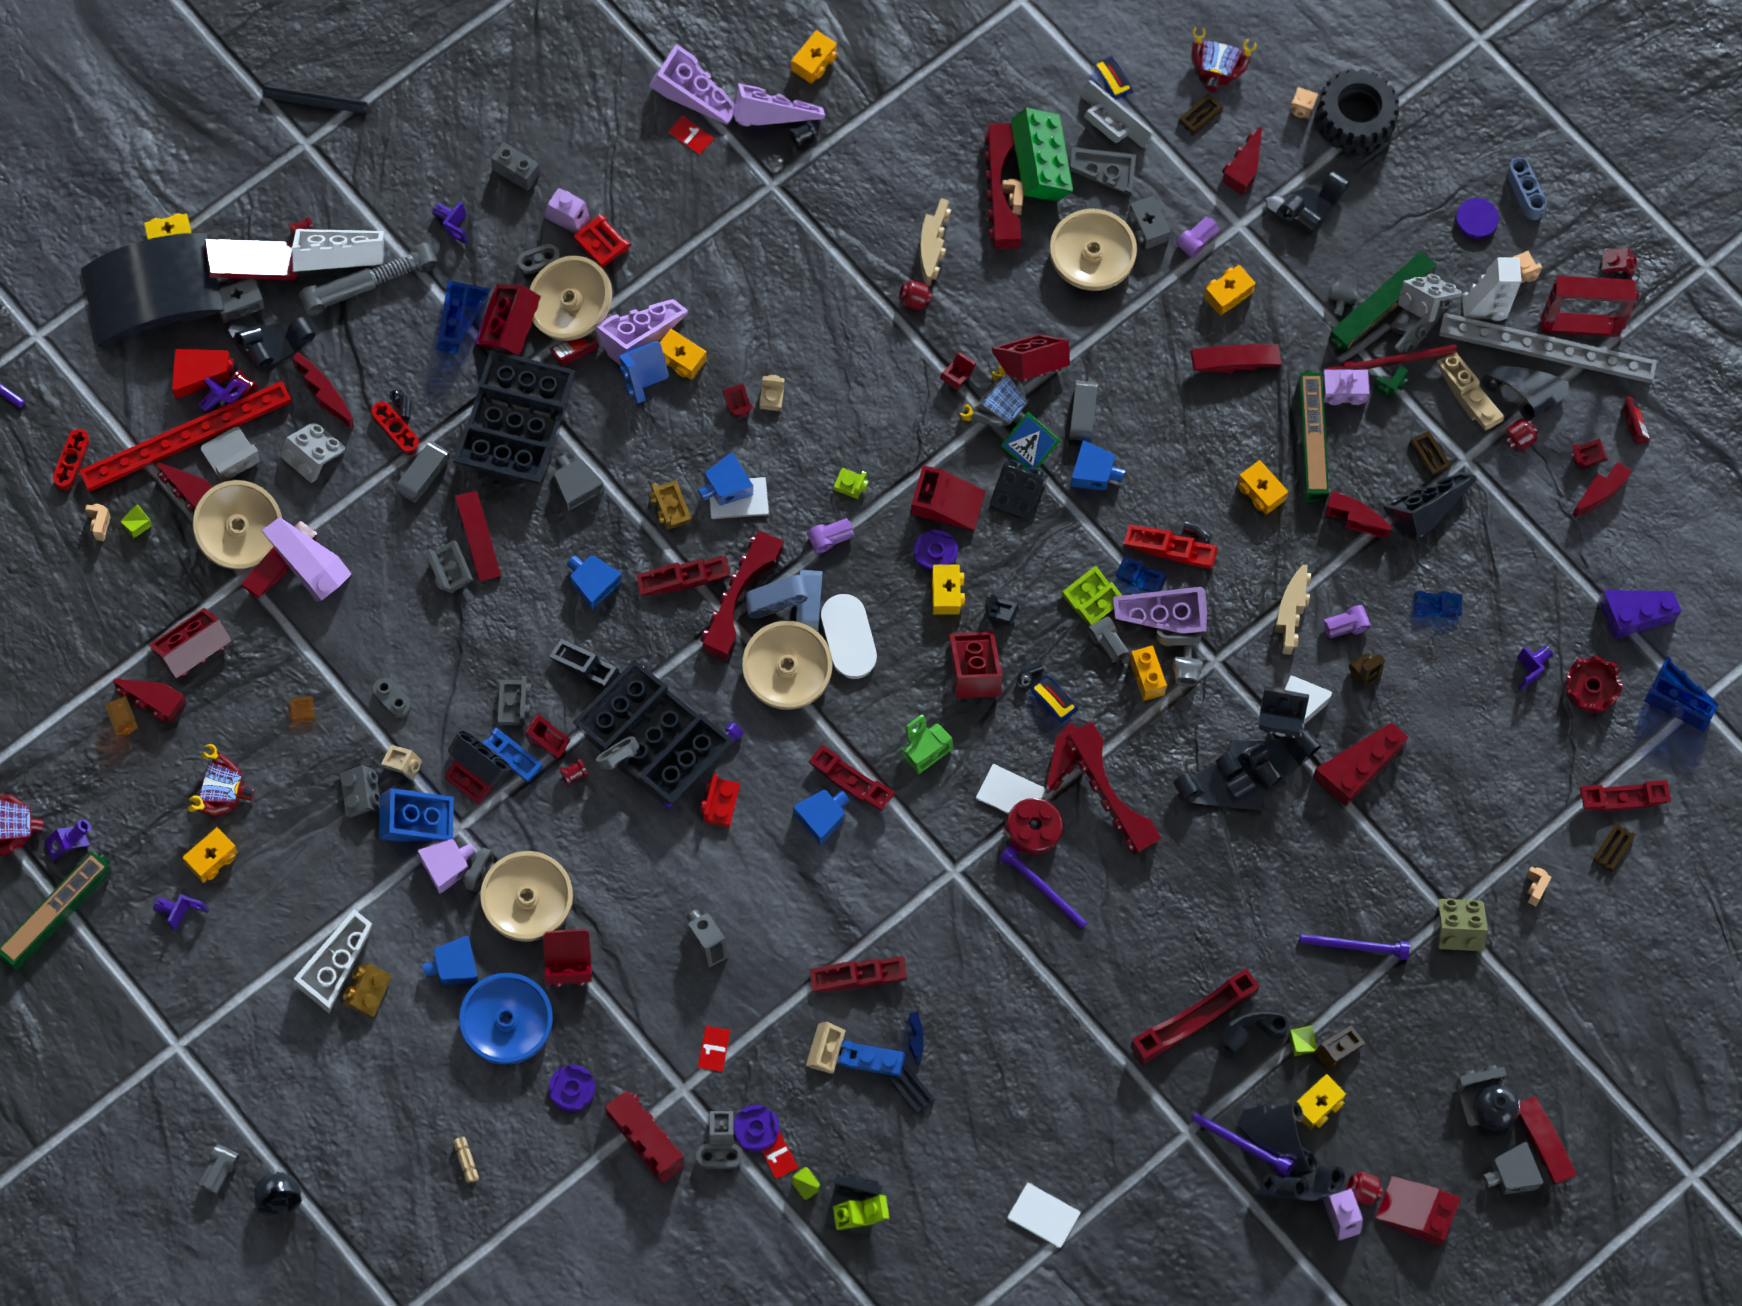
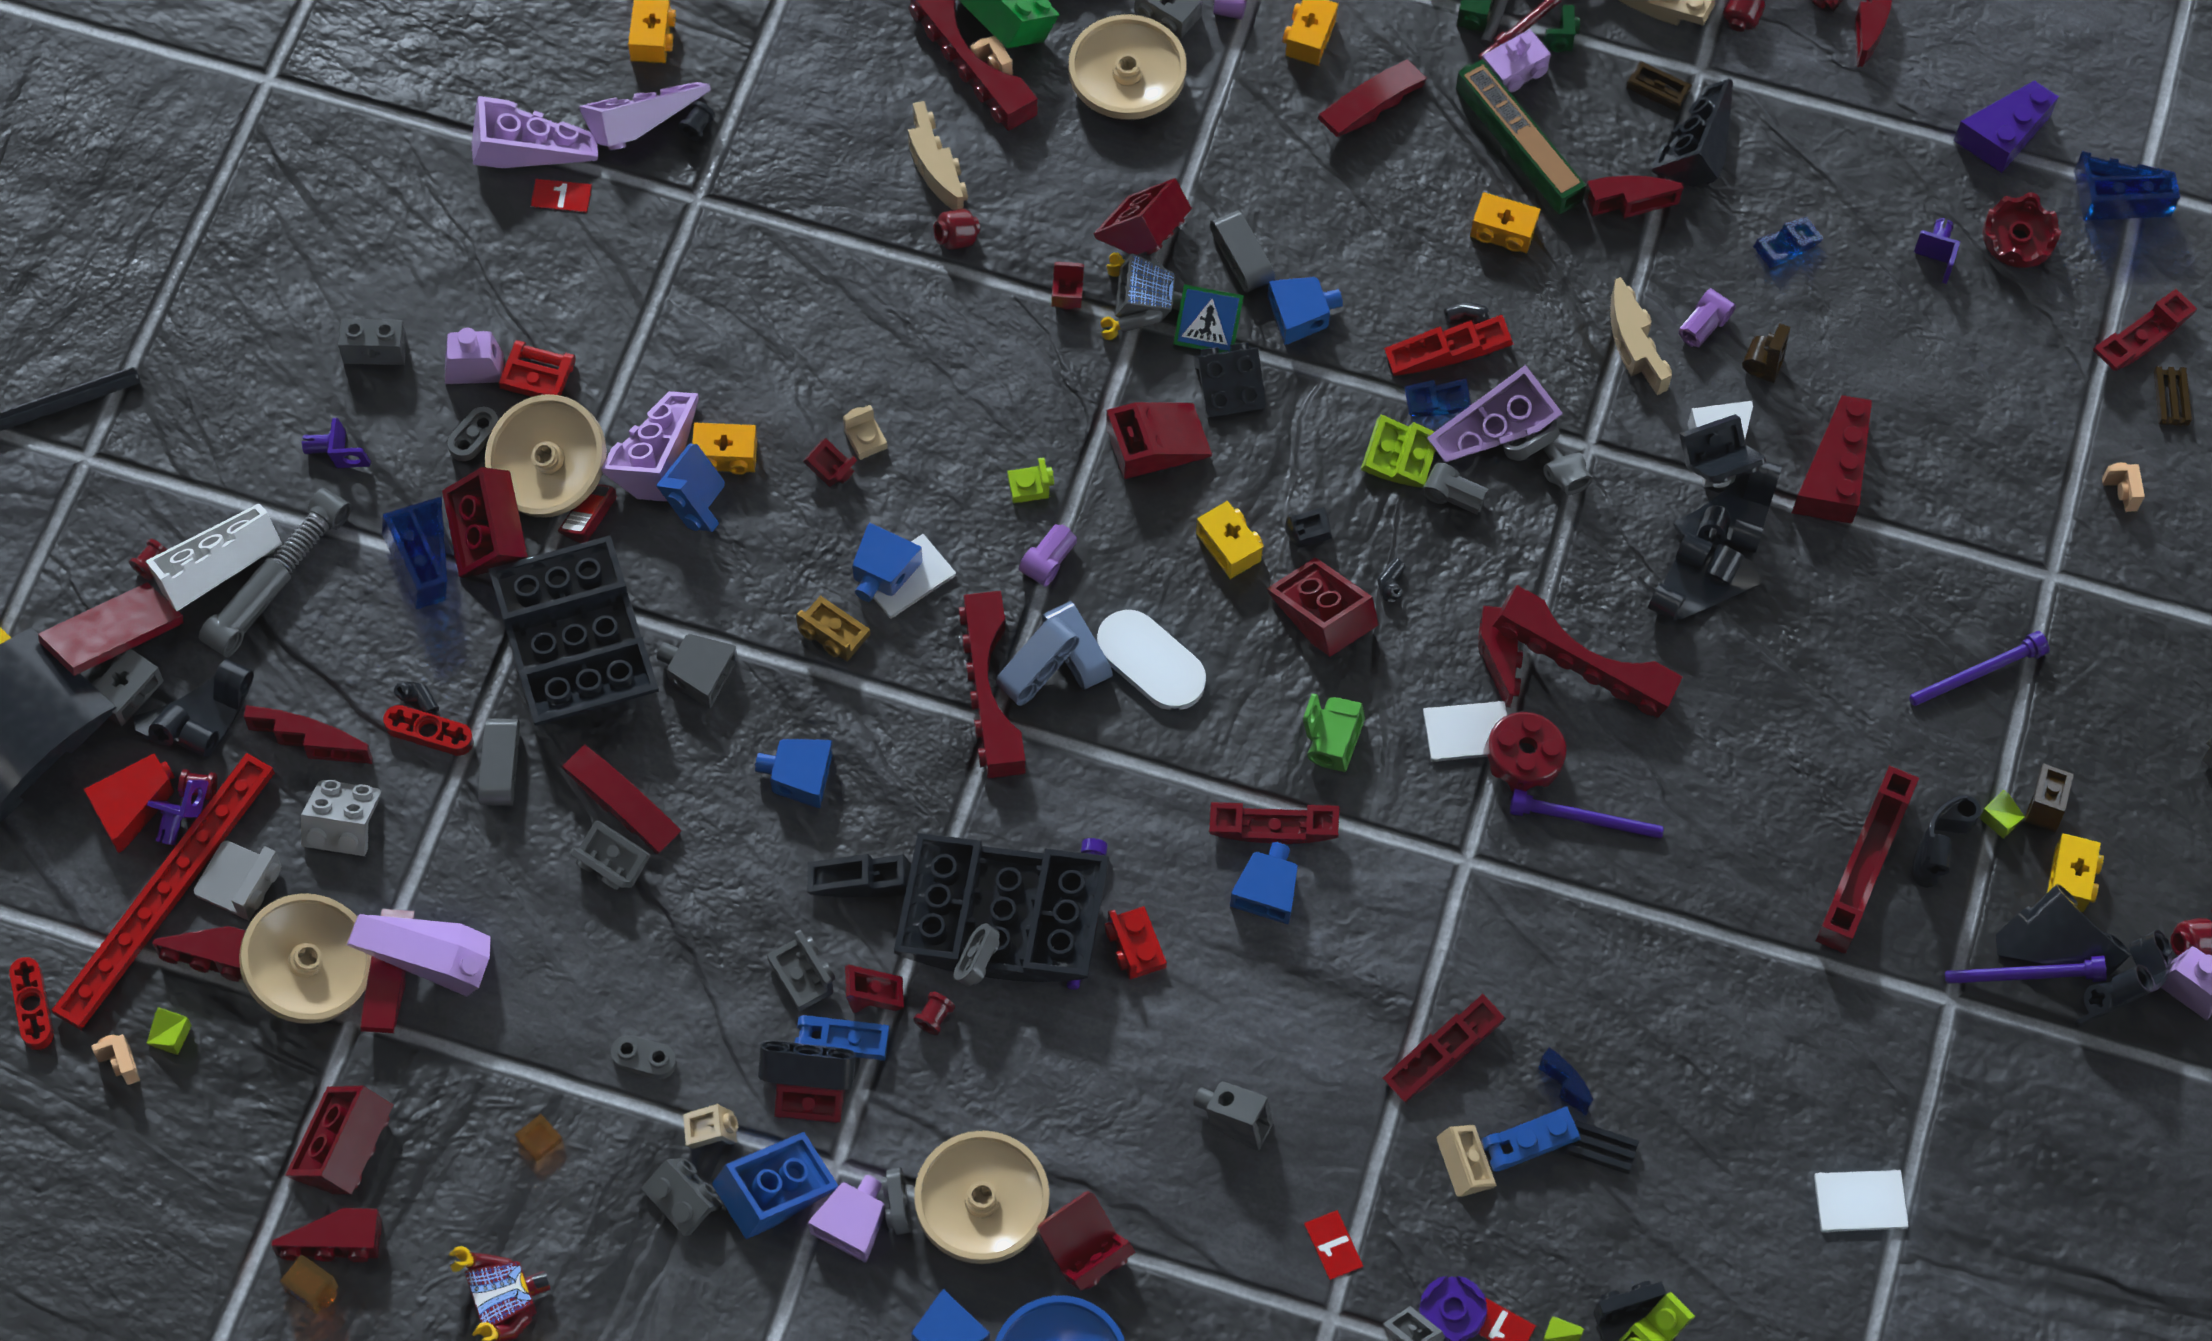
camera: 30 degrees left, 5 degrees down
(683, 576) = (905, 703): dark red slope -> none
(787, 665) = (1106, 733): tan dish -> none
(935, 548) = (1181, 502): dark purple tile -> none
(1054, 698) = (1447, 593): slope -> none
(1148, 673) = (1528, 500): light orange brick -> none
(1462, 925) = (2081, 575): olive bracket -> none

